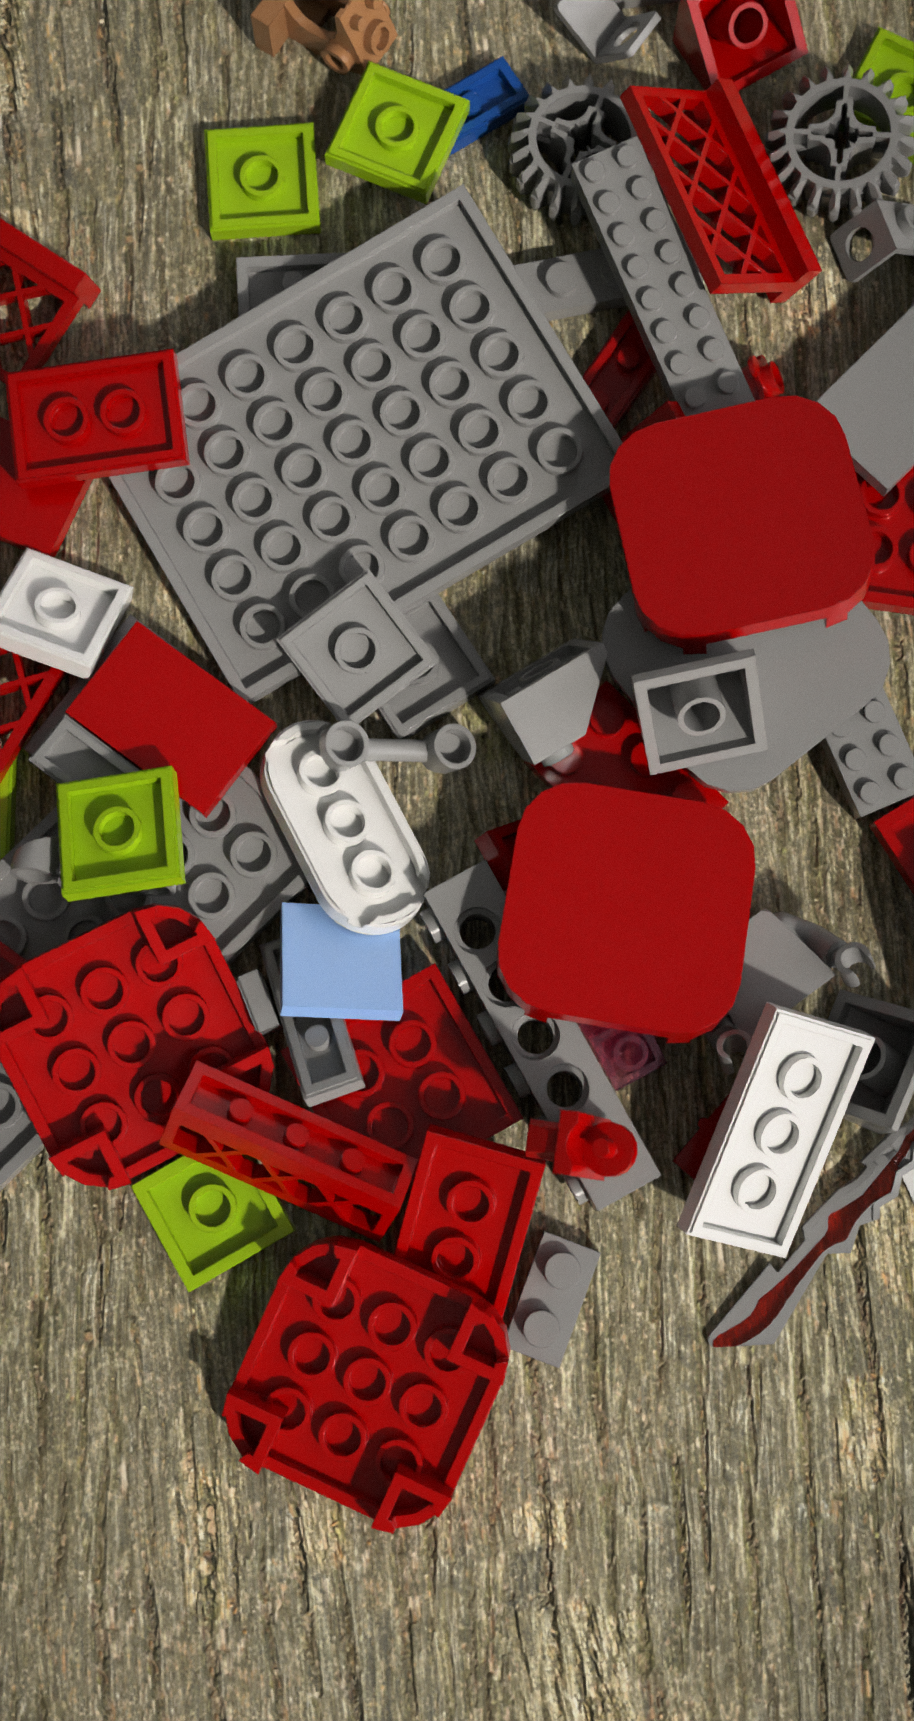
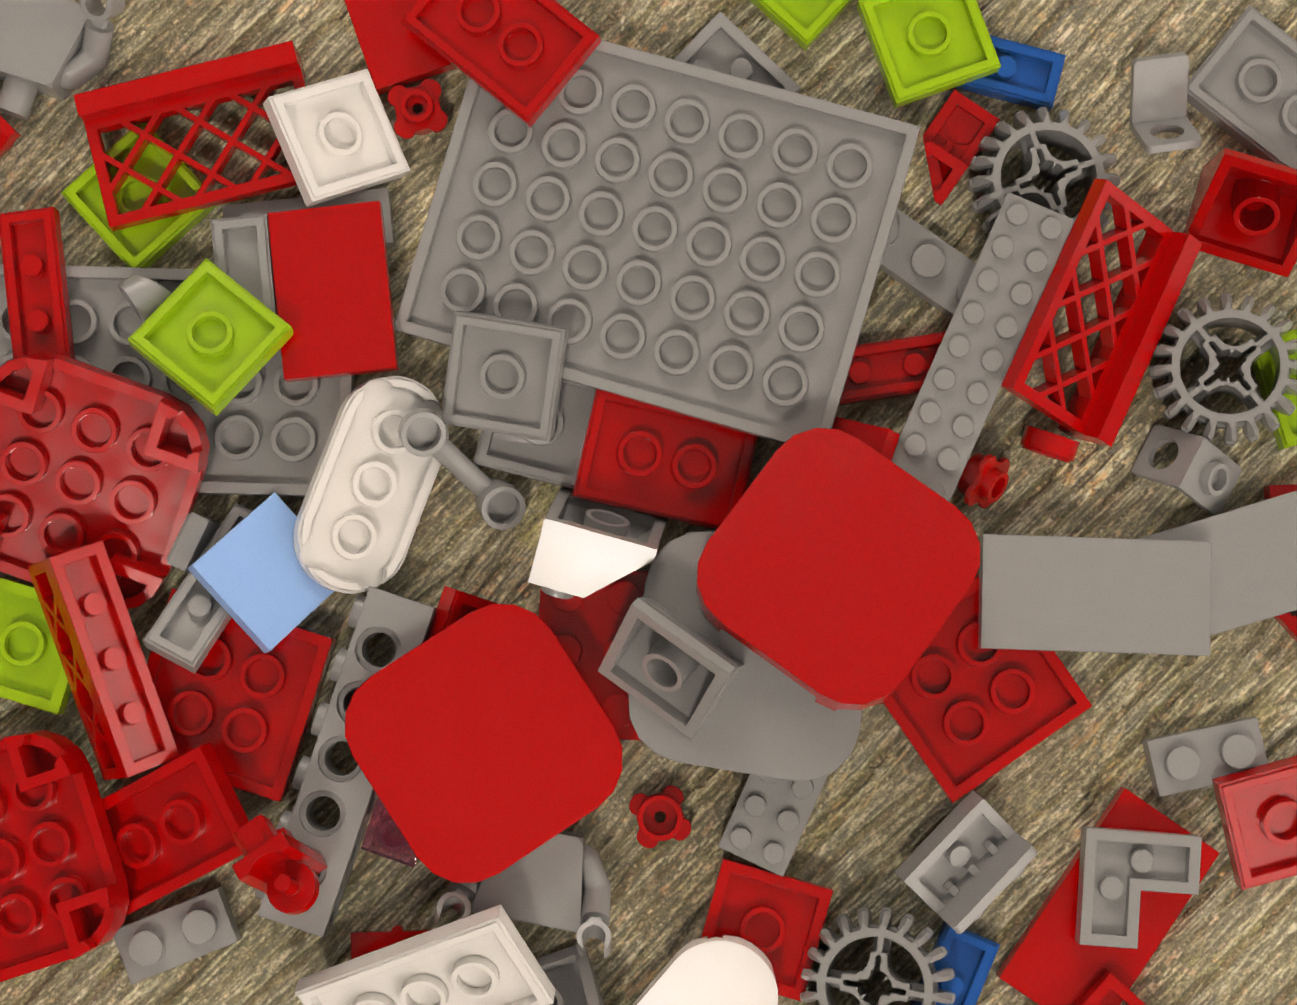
camera: 50 degrees right, 5 degrees up
(96, 555) = (429, 120): none -> red plate
(492, 186) = (954, 141): none -> red slope
(530, 600) = (661, 462): none -> red tile
(777, 315) = (1049, 444): none -> red tile
(812, 837) = (673, 826): none -> red plate

